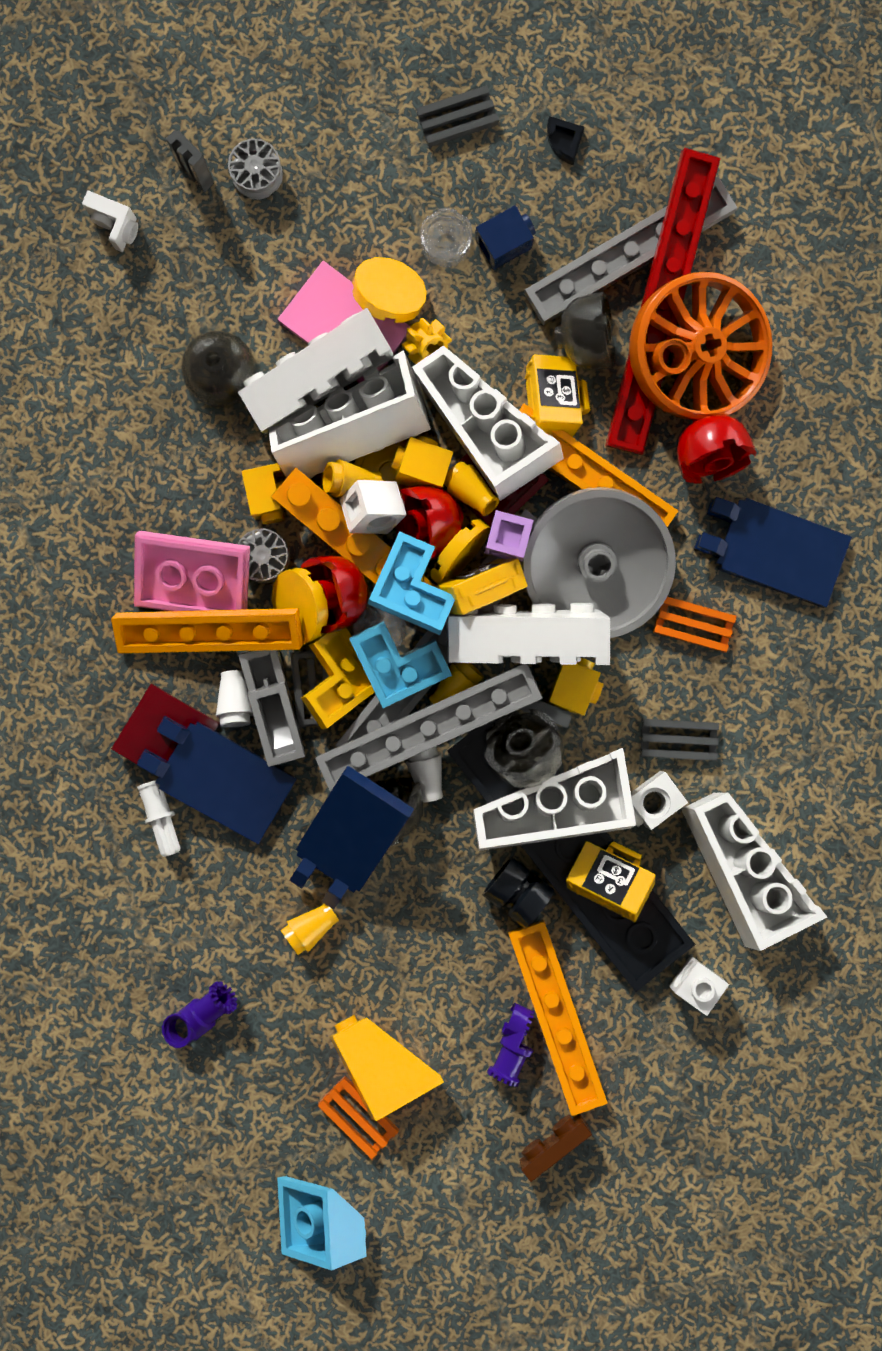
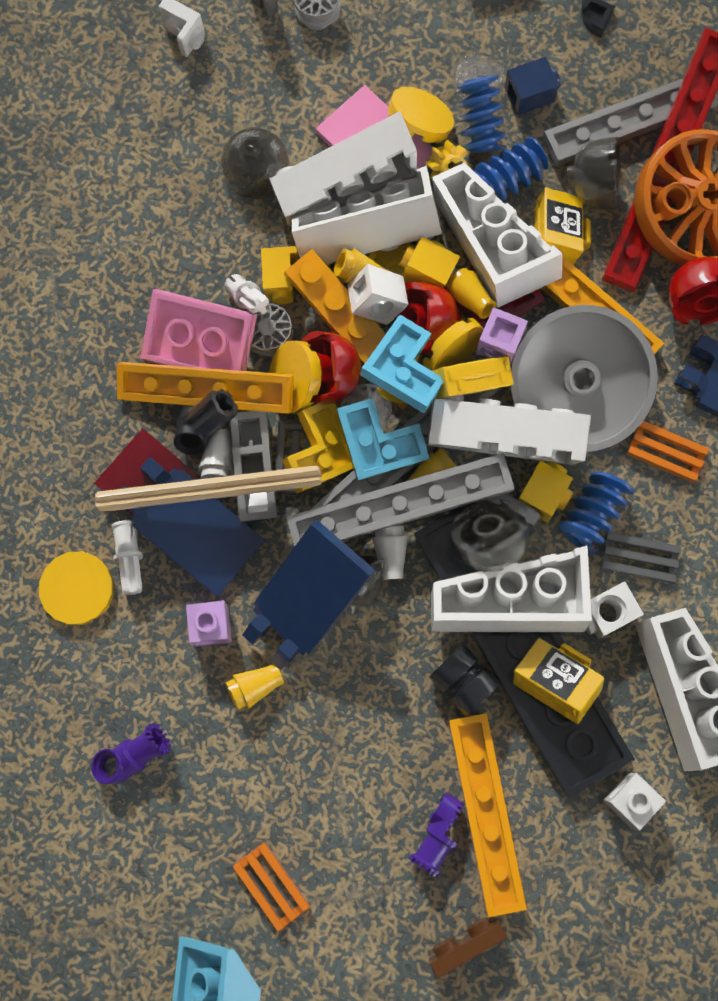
camera: 15 degrees right, 10 degrees down
(113, 856) = (76, 588): none -> yellow tile
(209, 669) = (202, 421): none -> black piece
(230, 743) = (207, 488): none -> tan axle
(235, 523) = (246, 294): none -> white axle
(254, 875) = (209, 623): none -> lavender brick
(381, 1067) = (302, 834): yellow slope -> none
(455, 283) = (480, 114): none -> blue piece
(494, 339) = (514, 167): none -> blue piece
(628, 700) = (593, 509): none -> blue piece

